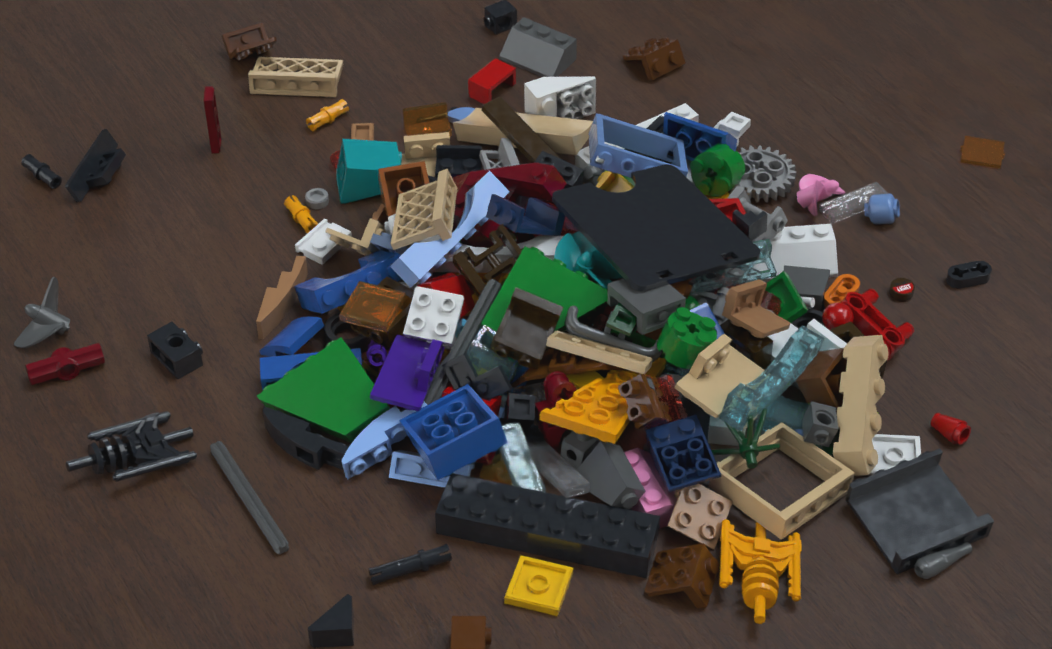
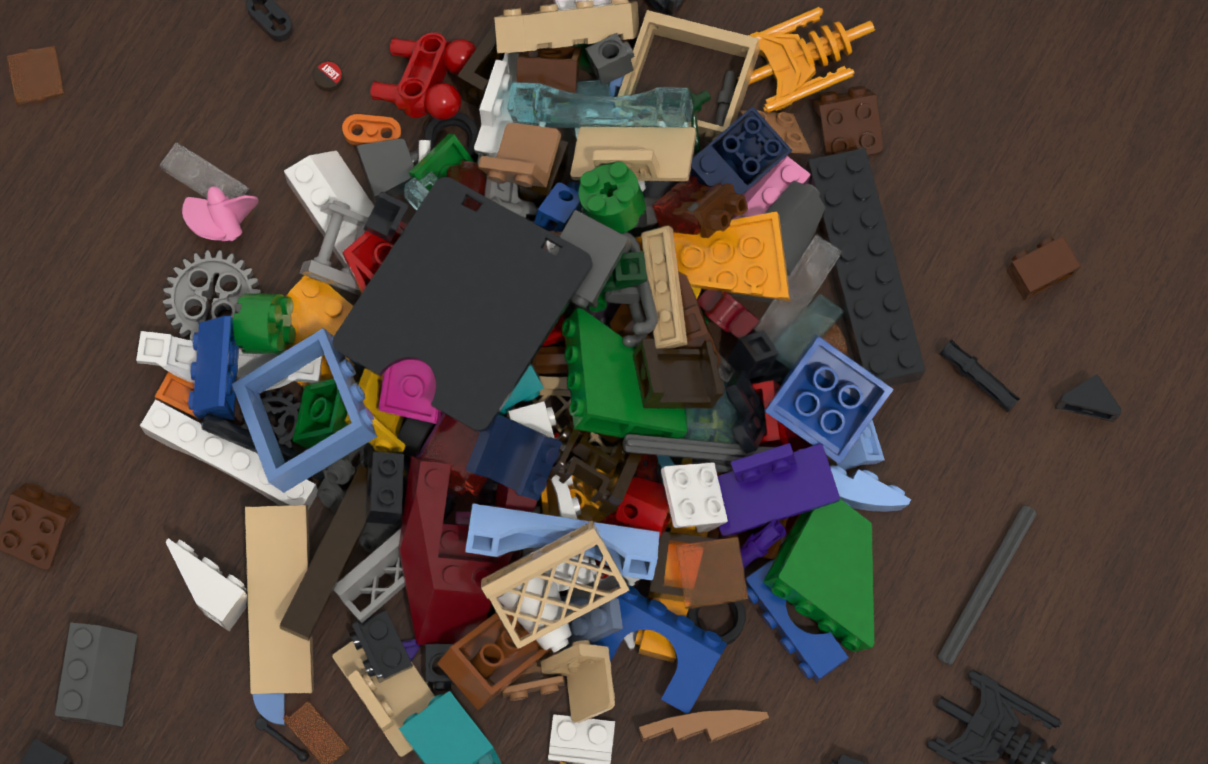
camera: 125 degrees left, 30 degrees up
(293, 336) = (761, 671): blue slope -> none
(297, 440) = (893, 580): black slope -> none
(488, 78) = (192, 698): red panel -> none
(538, 585) = (930, 248): yellow tile -> none
(571, 255) = (550, 377): teal piece -> none
(882, 209) = (210, 138): medium blue head -> none

